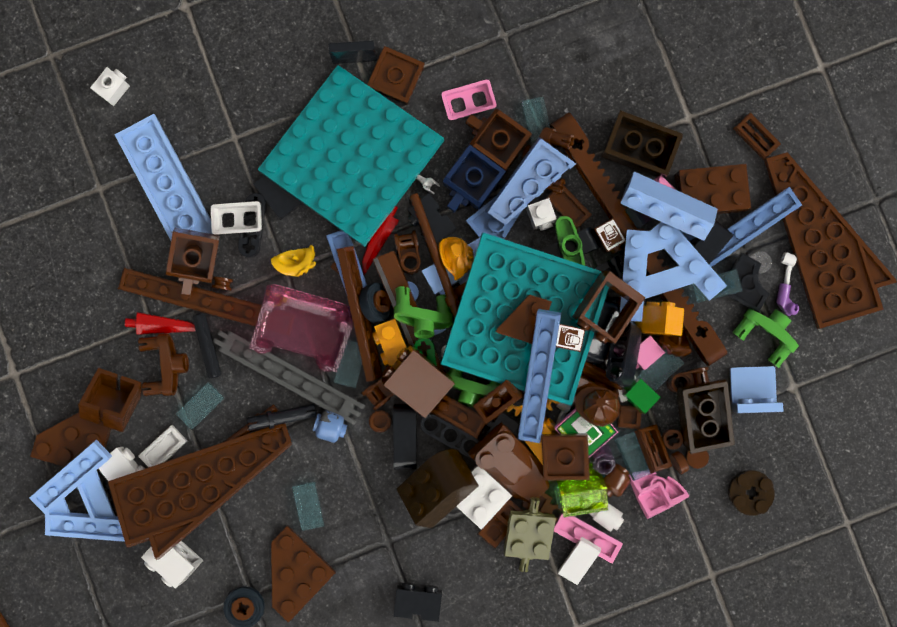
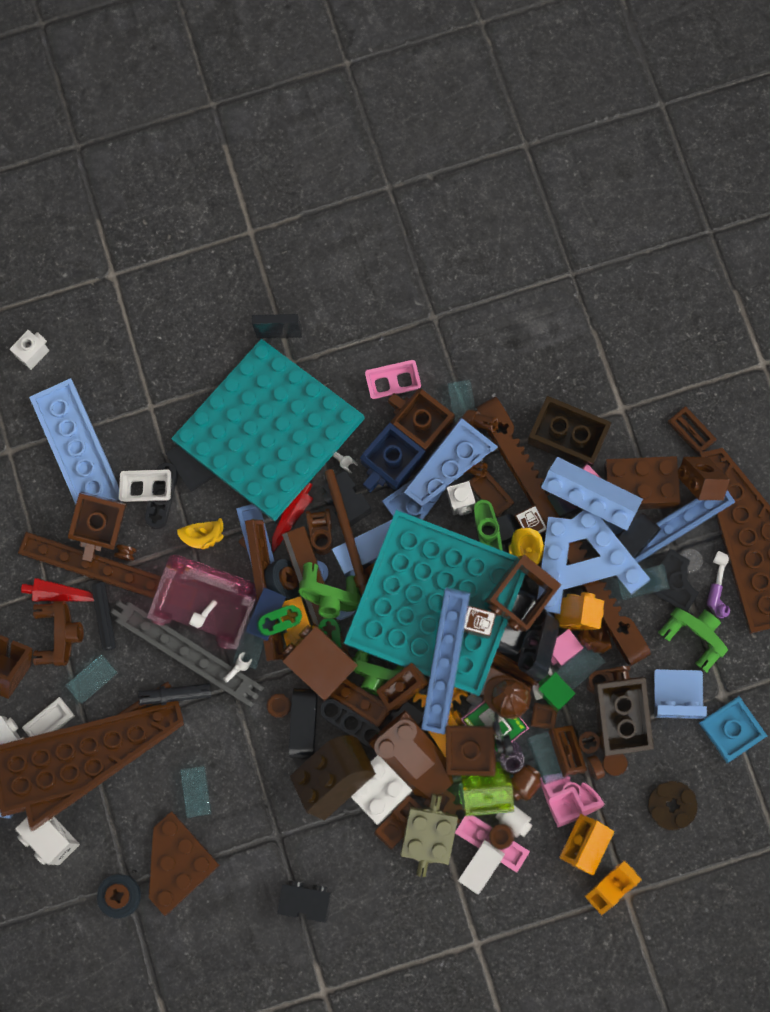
camera: 15 degrees right, 10 degrees down
(298, 345) = (197, 620): none -> white hand
(329, 426) = (224, 707): medium blue head -> none
(340, 387) = (239, 666): none -> white hand
(363, 338) = (268, 602): none -> dark blue tile
(379, 349) = (277, 614): none -> green beam
(380, 391) = (282, 673): reddish brown piece -> none
(396, 75) = (320, 352): reddish brown tile -> none
(456, 256) = (368, 535): light orange hat -> none
(522, 320) = (429, 603): reddish brown wing -> none
(596, 449) = (504, 742): none -> black plate
(597, 532) = (501, 836): none -> reddish brown tile
(608, 258) = (527, 542): none -> yellow hat
(675, 535) = (586, 844): none -> light orange brick
(700, 571) = (613, 887): none -> light orange brick
(773, 185) = (703, 478): none -> reddish brown brick
(804, 419) = (733, 729): none -> dark azure tile

